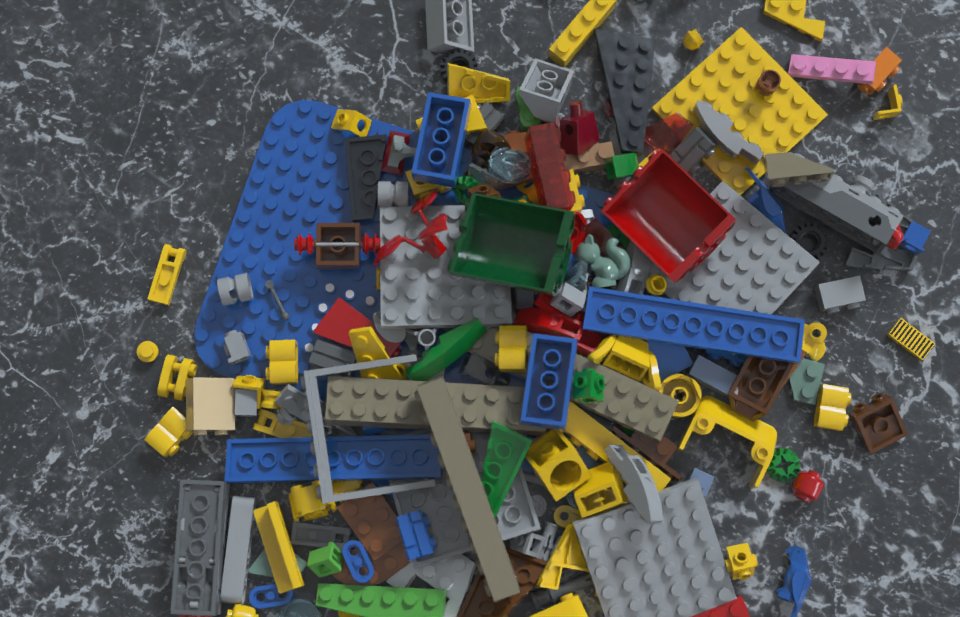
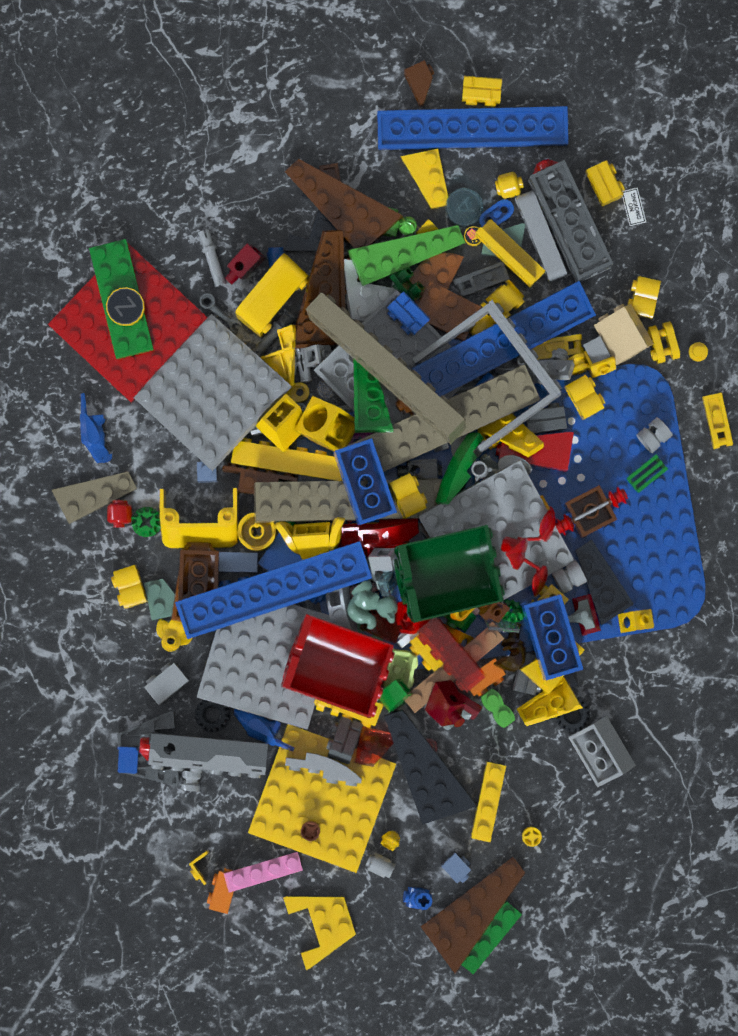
camera: 155 degrees right, 5 degrees up
(129, 532) = (633, 206): none -> white sticker
(144, 570) = (604, 183): none -> yellow brick
(236, 347) = (628, 390): light grey brick -> none
(245, 260) = (659, 463): none -> green tile
(270, 285) = (630, 454): dark grey hinge -> none
(309, 588) = (470, 238): none -> tile
(325, 560) = (468, 262): bright green brick -> none
(357, 561) = (442, 274): blue plate -> none
(403, 568) = (402, 283): none -> dark green hips
(510, 165) = (486, 645): clear light blue tile -> none
(546, 89) = (490, 728): light grey slope -> none
(588, 386) = (332, 494): green brick -> none
(600, 190) = (402, 667): none -> yellowish green bracket
(641, 486) = (252, 438): light grey slope -> none
(656, 284) = (319, 609): yellow plate -> none
(714, 21) = (380, 865): none -> light grey brick
(740, 561) = (144, 426): yellow brick -> none
(790, 168) = (260, 756): dark tan slope -> none
(829, 520) = (86, 497): none -> dark tan wing
(878, 422) = (87, 593): reddish brown plate -> none
(910, 339) = (91, 677): yellow tile -> none

